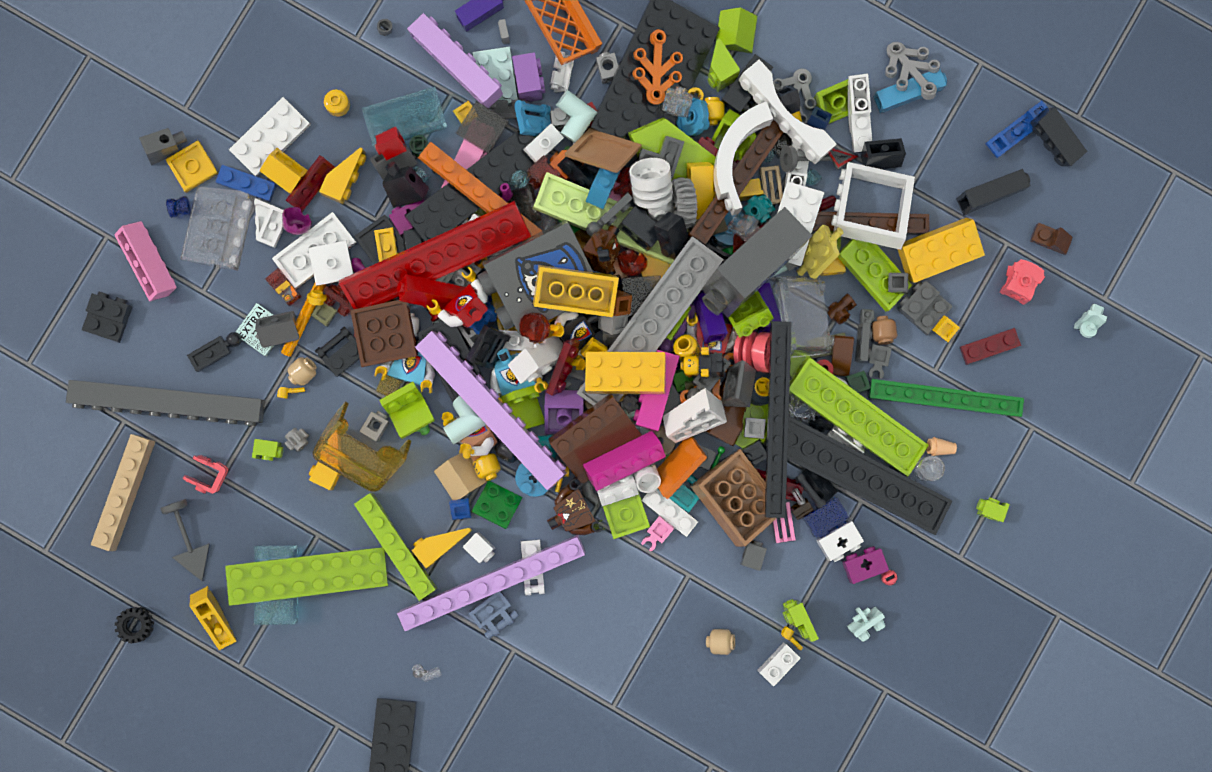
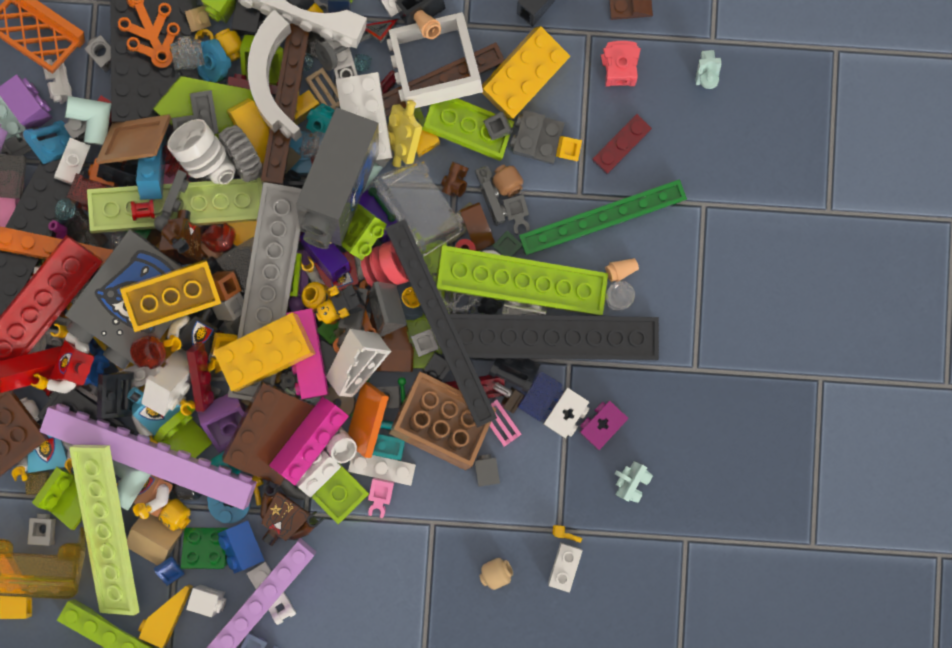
camera: 20 degrees left, 0 degrees up
(428, 450) = (104, 529): none -> yellowish green plate
(527, 518) = (240, 547): none -> blue brick
(589, 210) = (147, 207): none -> red bush
(639, 228) = (211, 198): black brick -> none
(671, 234) = (242, 190): black brick -> none
(698, 77) = (197, 18): none -> tan plate
(772, 286) = (373, 192): none -> dark green hinge
(797, 616) = (558, 509): lime plate -> none
(882, 175) = (428, 25): none -> light nougat cone
(887, 574) = (629, 423): coral hinge -> none
(992, 509) = (702, 306): lime brick -> none

